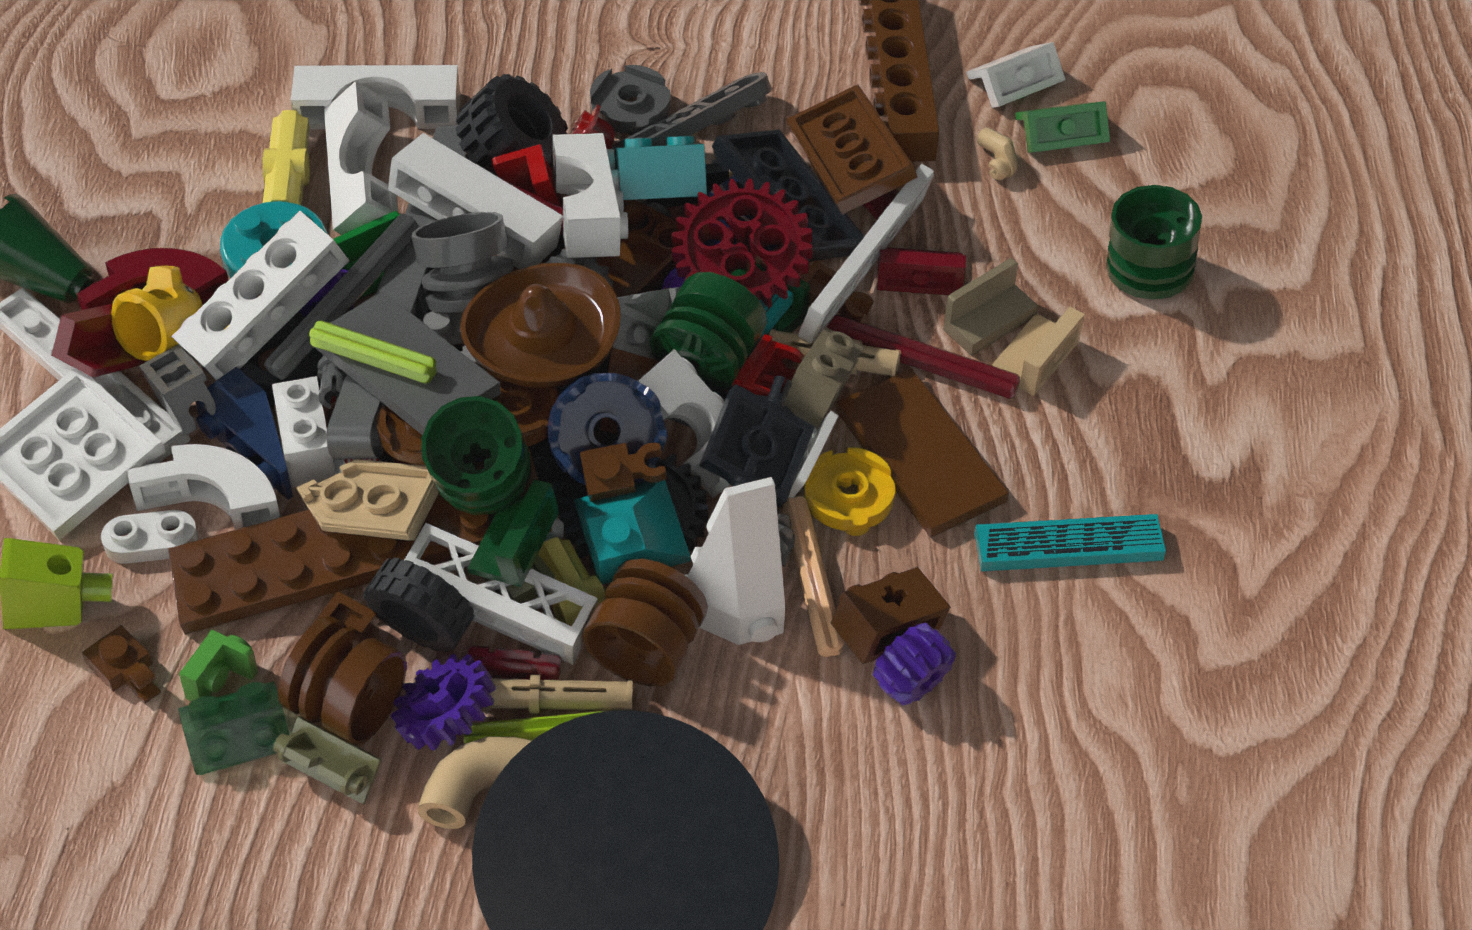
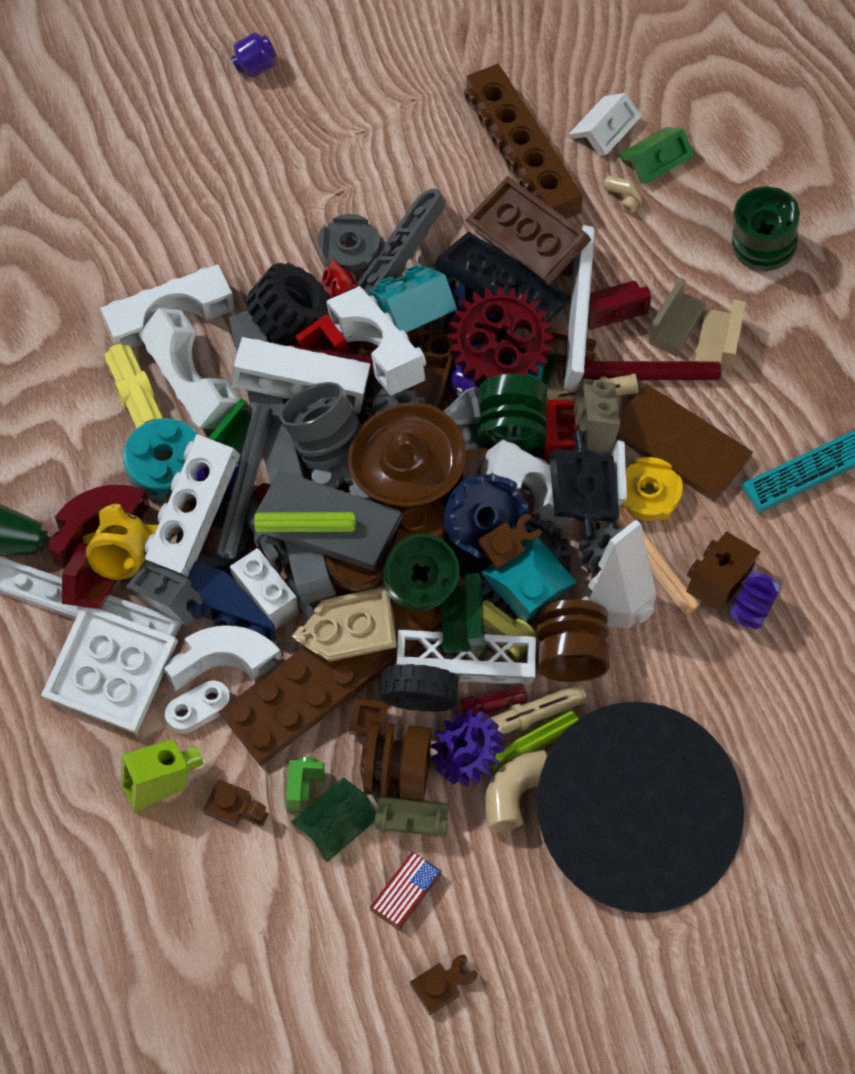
camera: 20 degrees left, 10 degrees up
(272, 847) = (405, 890): none -> tile

